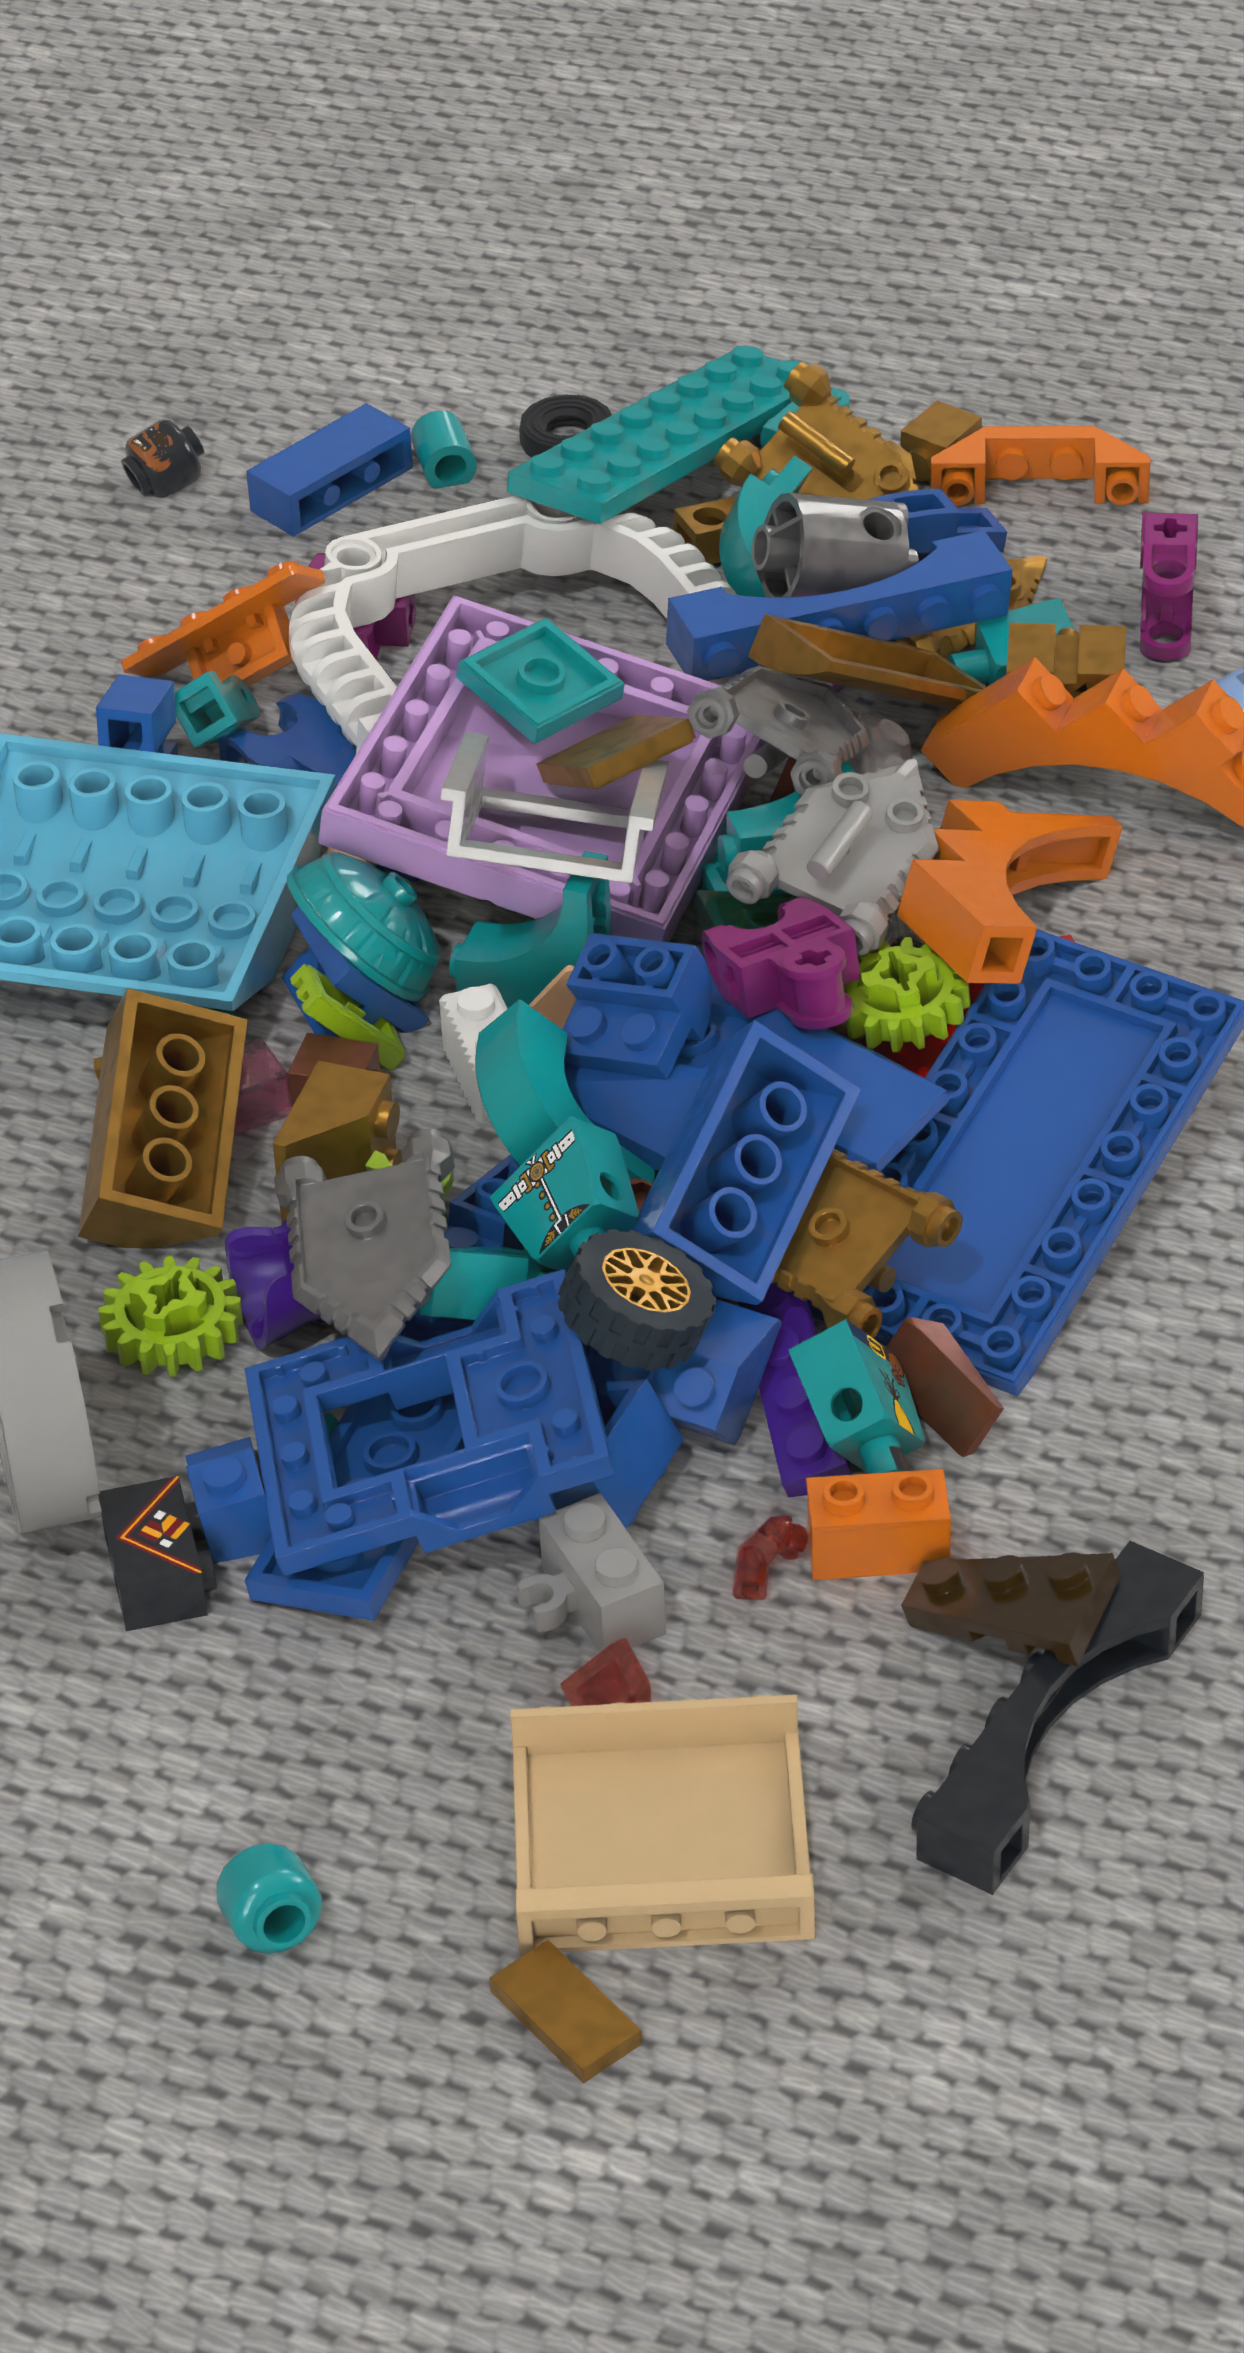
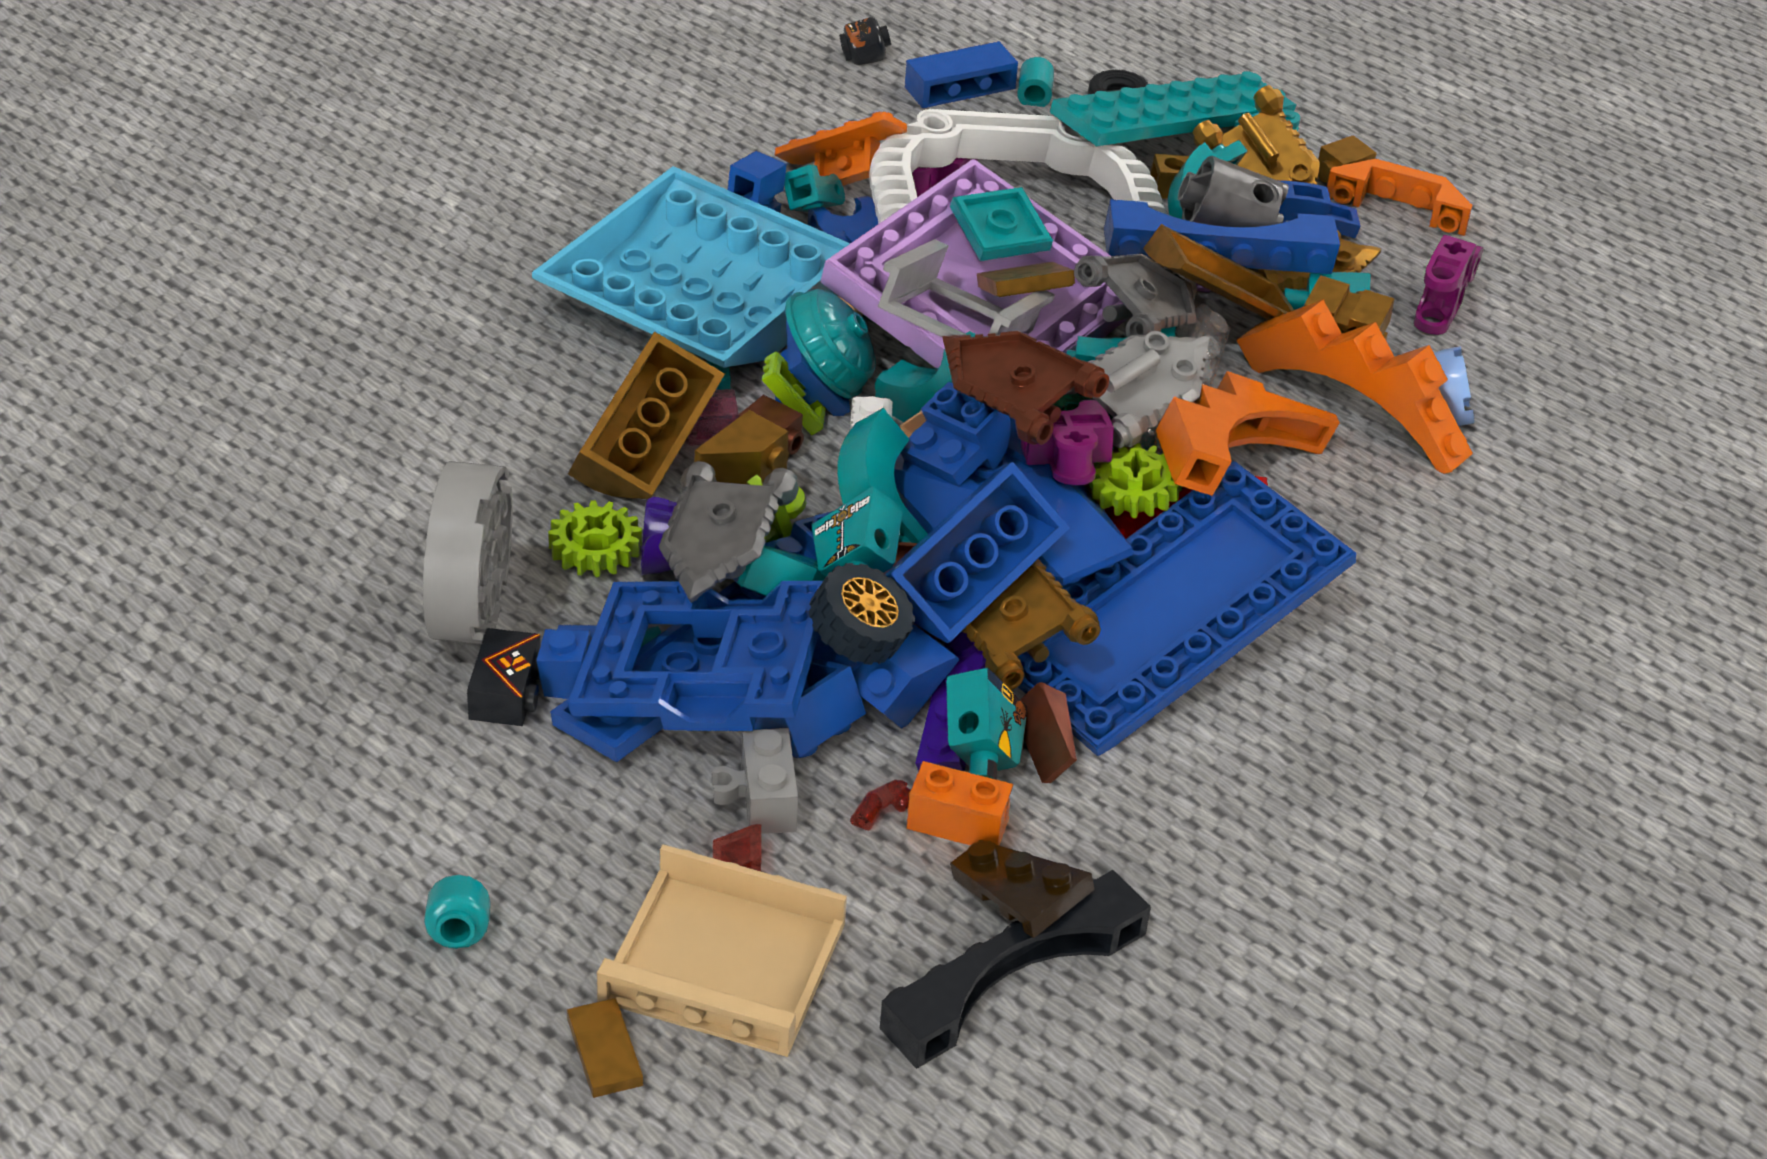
camera: 15 degrees right, 0 degrees up
(699, 897) = (1020, 378): none -> copper shield

